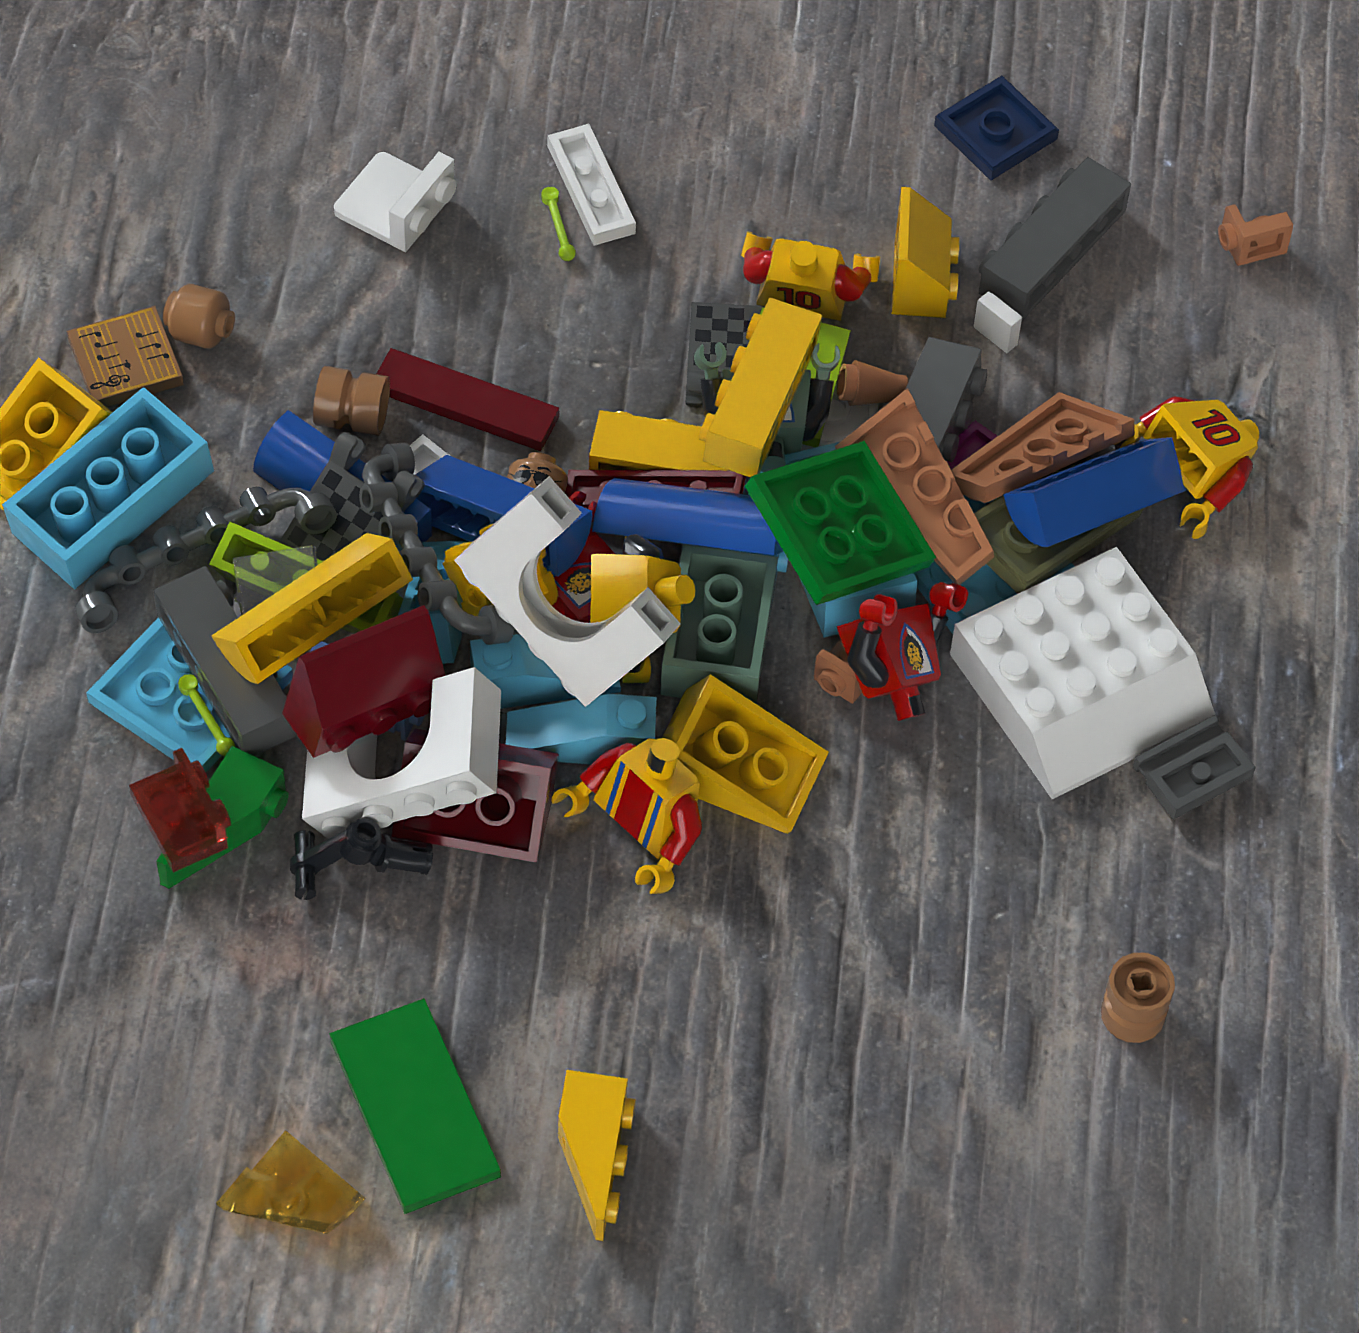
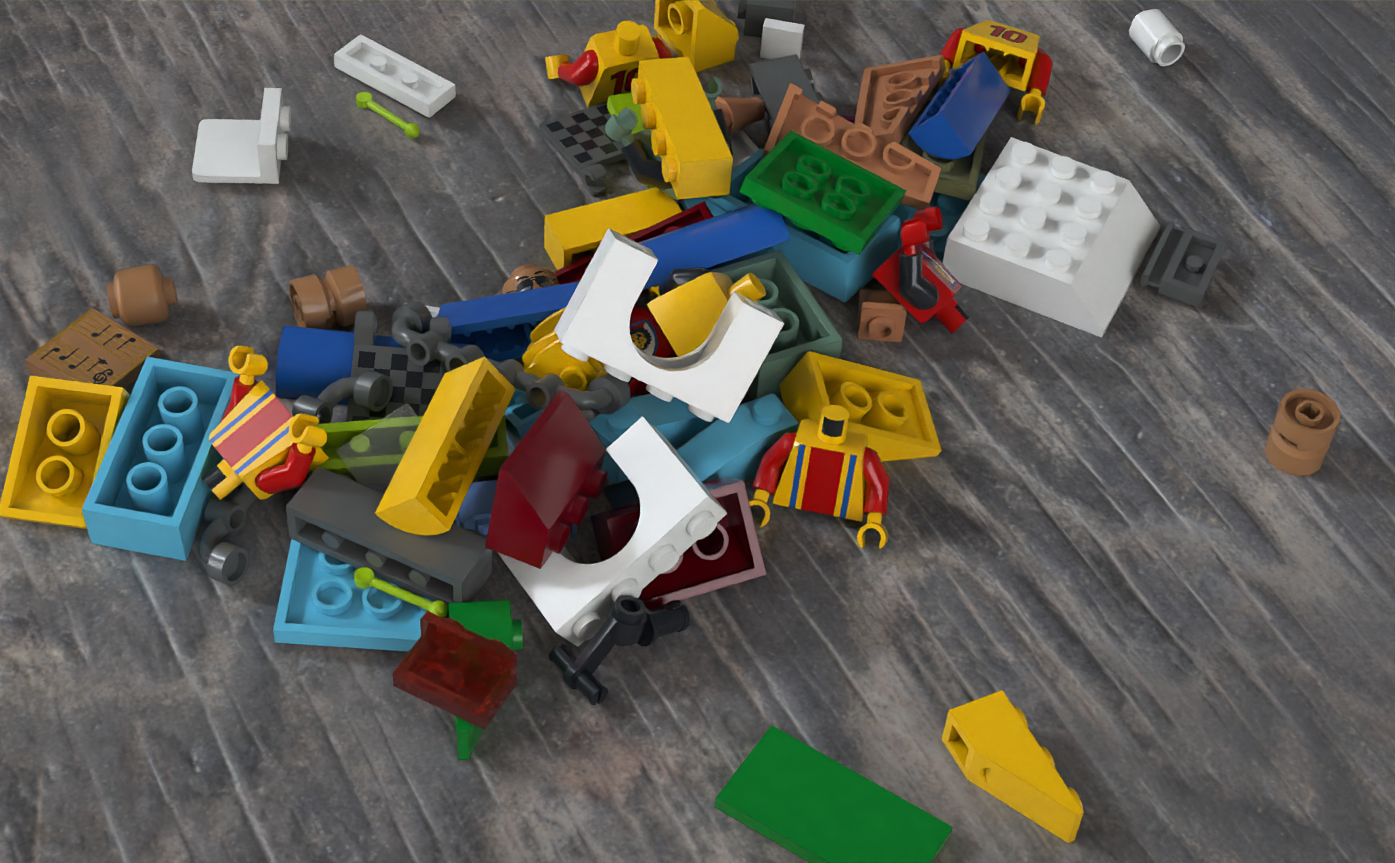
camera: 35 degrees left, 10 degrees down
(182, 515) = (261, 437): none -> torso
(469, 400) = (424, 262): dark red tile -> none

